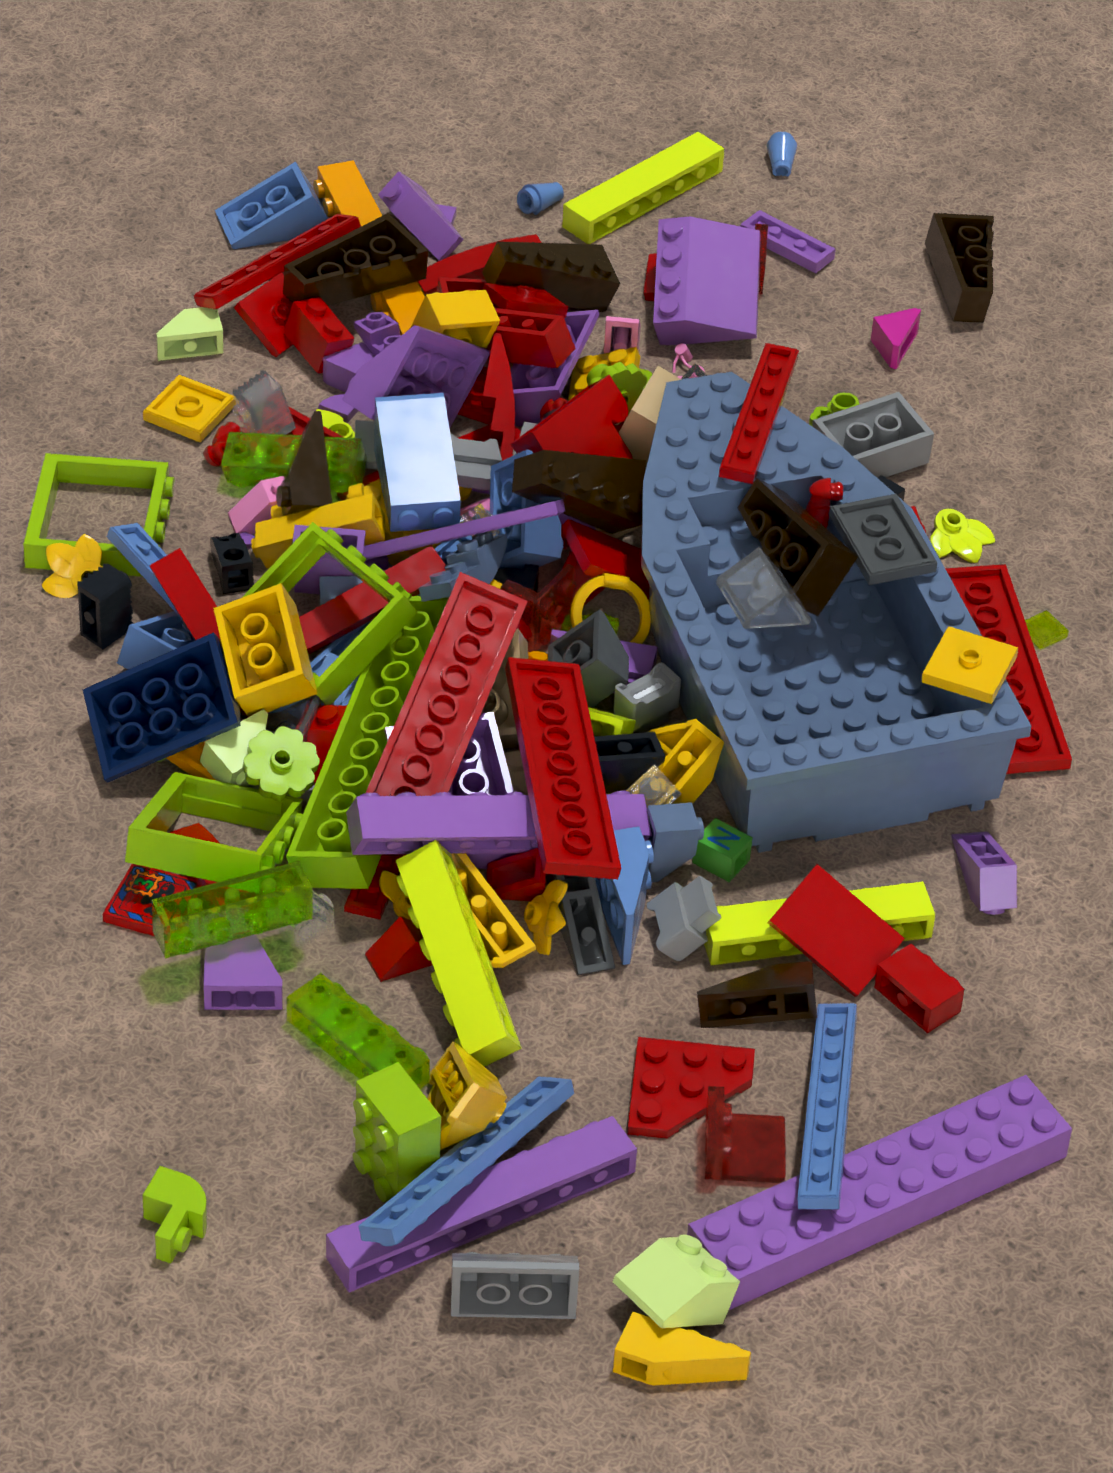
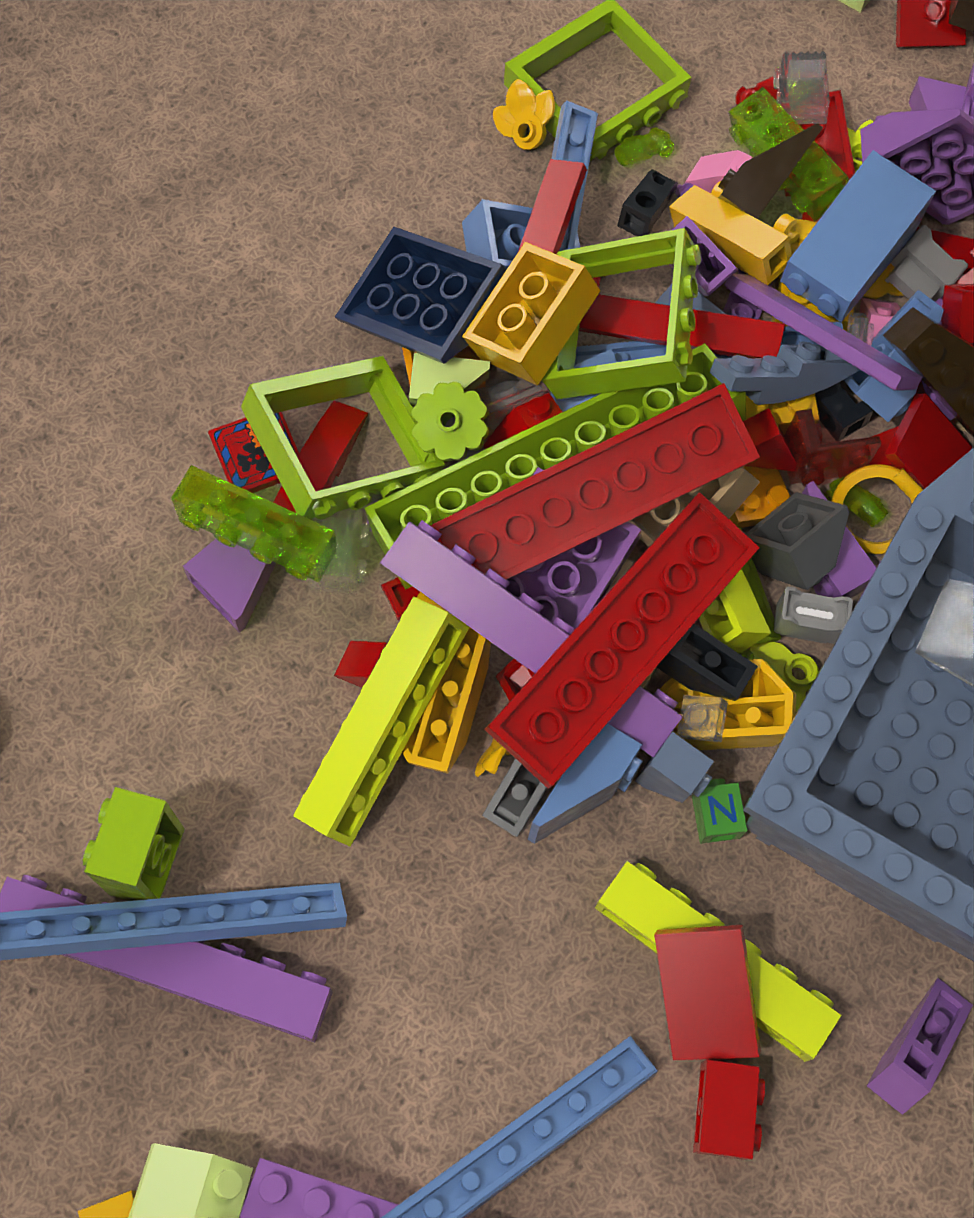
camera: 45 degrees right, 25 degrees up
(105, 605) = (501, 165): black brick -> none
(181, 532) = (644, 147): none -> clear neon green arm
(189, 408) = (768, 35): yellow plate -> none
(316, 331) = (940, 48): red brick -> none
(352, 1031) = (245, 718): clear neon green brick -> none
(464, 1095) = (238, 858): yellow wedge -> none
(514, 1285) = (90, 1059): light grey slope -> none
(674, 1082) = (441, 1000): red plate -> none
(684, 917) = (606, 851): light grey piece -> none
(742, 1144) = (415, 1111): clear red bracket -> none
(761, 996) = (593, 992): dark brown slope -> none

